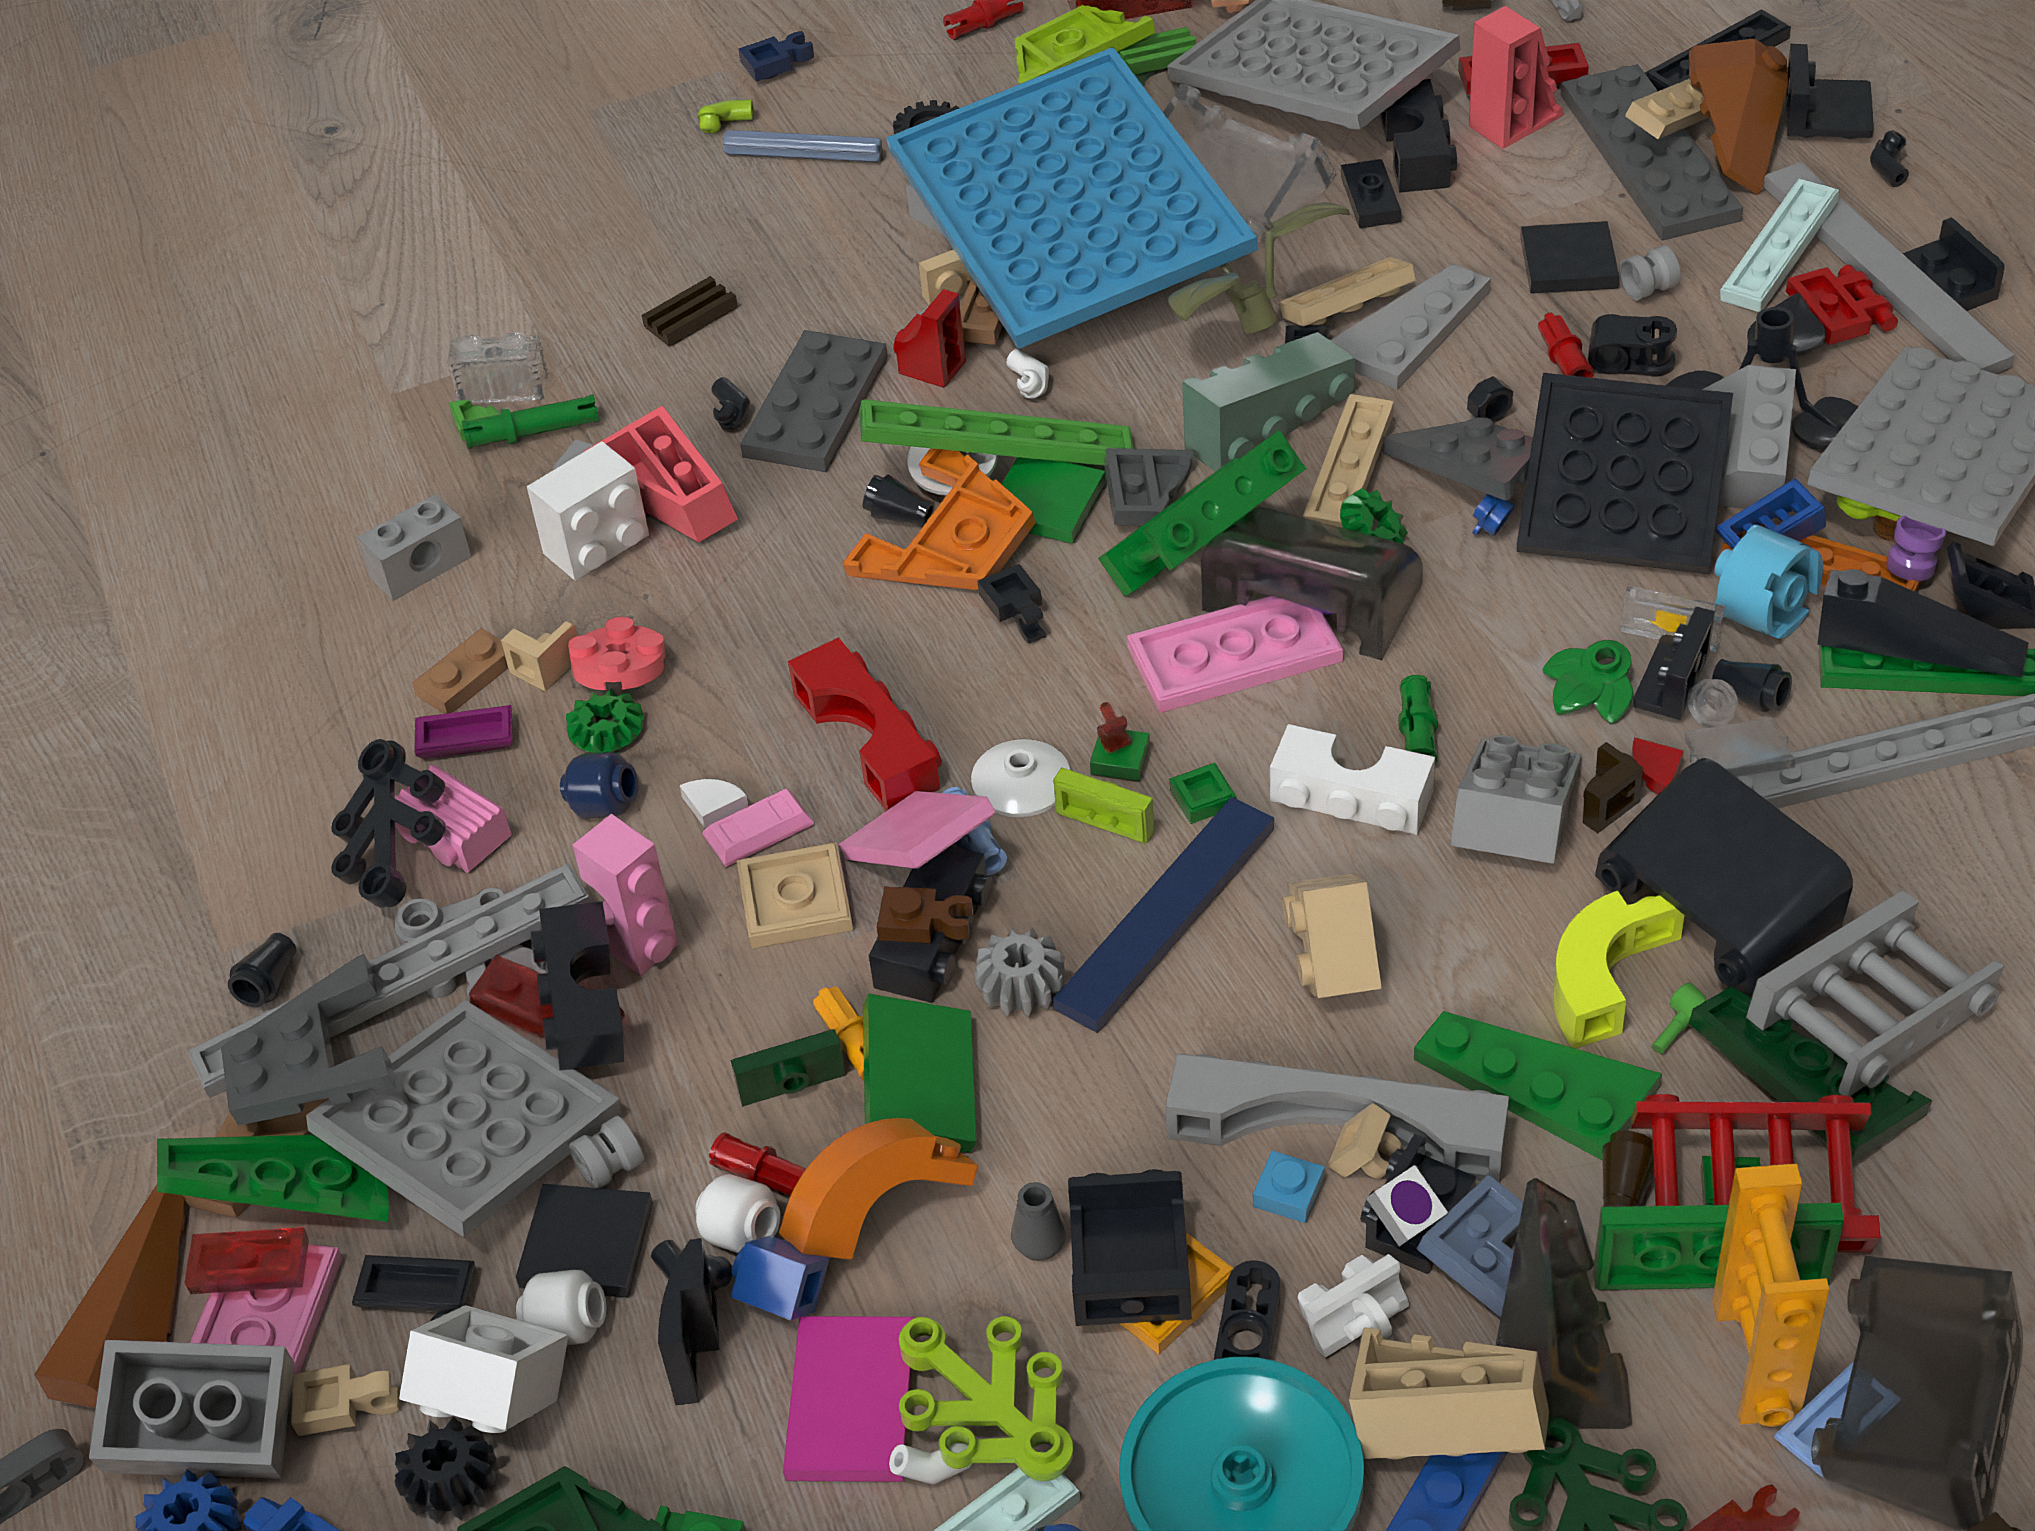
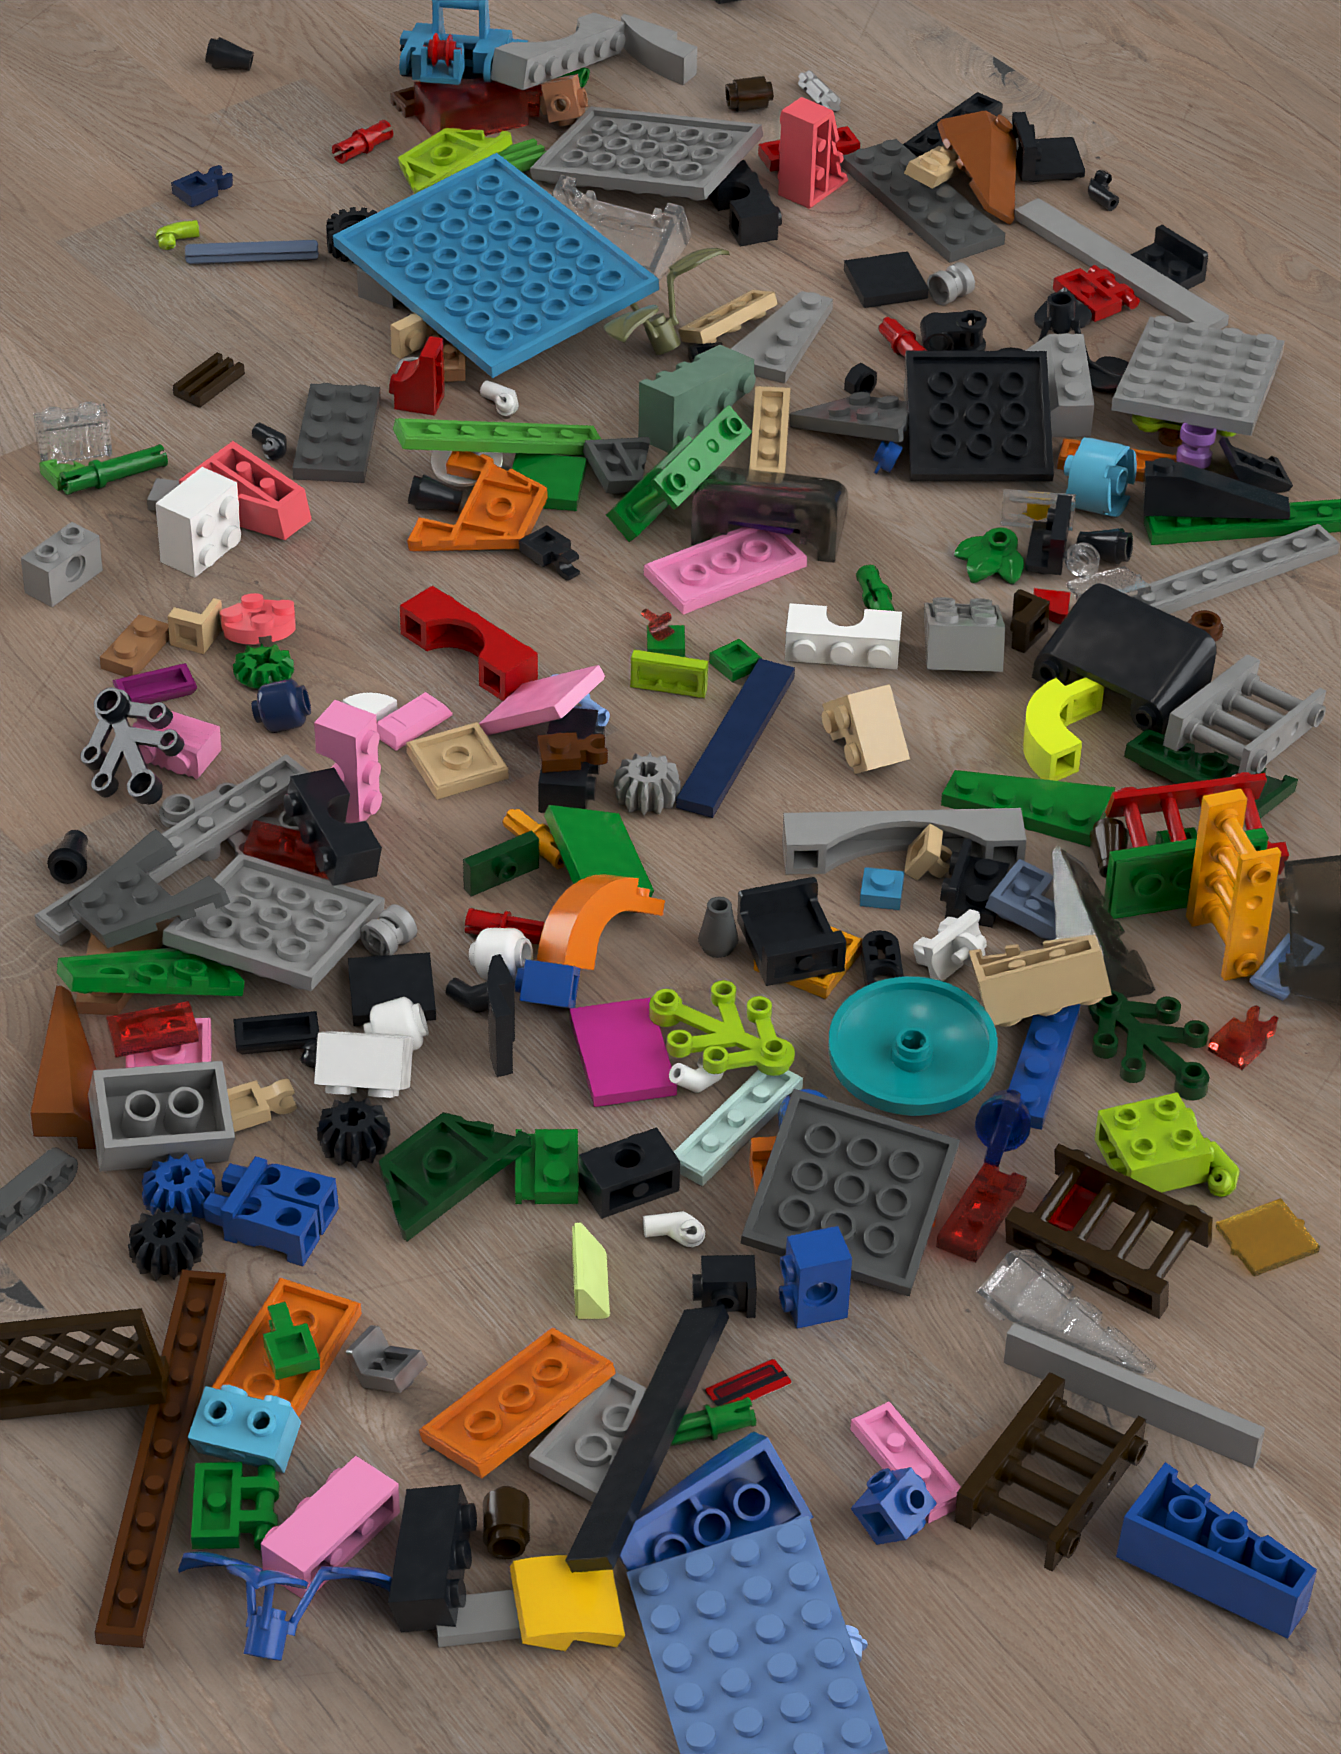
camera: 20 degrees left, 5 degrees down
(1018, 777) = (611, 658): white dish -> none
(1360, 510) = (797, 462): green gear -> none
(1370, 193) = (718, 236): black plate -> none
(1406, 1205) = (973, 878): tile -> none
(1682, 1002) = (1117, 746): bright green hand -> none
(1779, 245) = (1040, 256): light aqua tile -> none
(1789, 497) = (1100, 421): blue slope -> none
(1859, 830) = (1208, 622): none -> reddish brown plate

